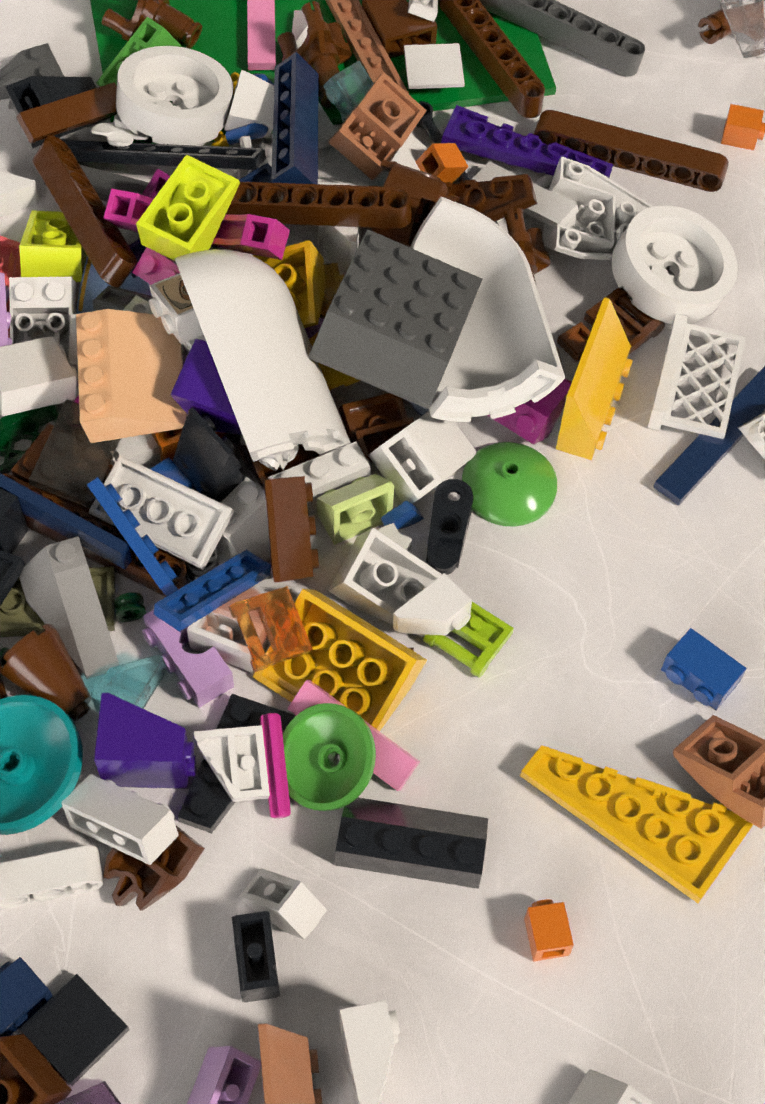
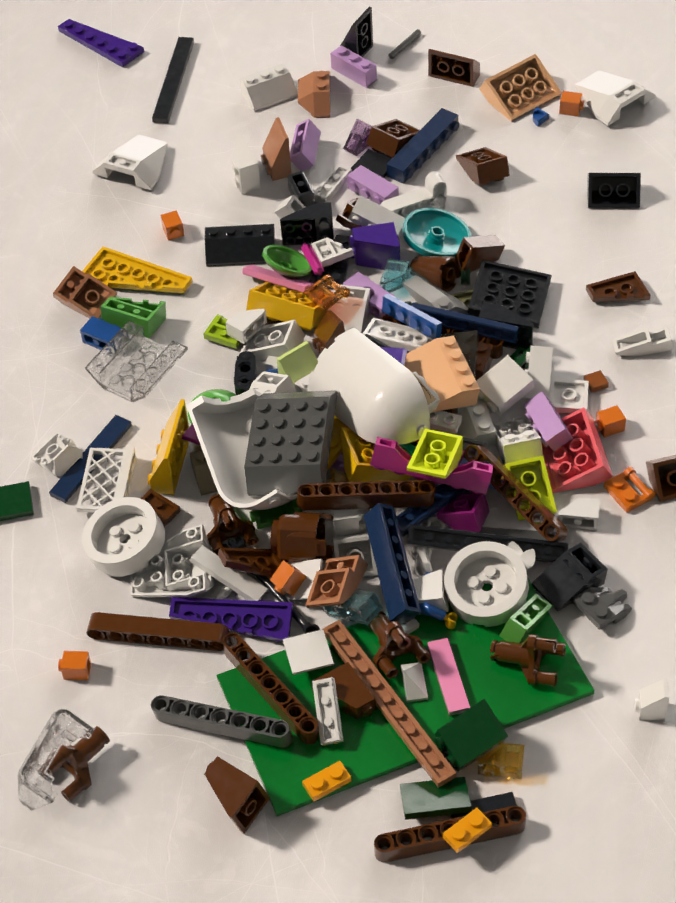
camera: 175 degrees right, 10 degrees down
(69, 113) = (553, 557): reddish brown tile -> none
(99, 944) = (371, 185): none -> lavender brick
(180, 995) = (332, 184): none -> white tile
(212, 590) = (362, 298): blue plate -> none
(253, 839) = (307, 225): none -> black slope
(574, 340) = (182, 496): dark orange tile -> none
(635, 585) = (132, 363): none -> clear slope
(642, 690) = (121, 310): none -> bright green wedge

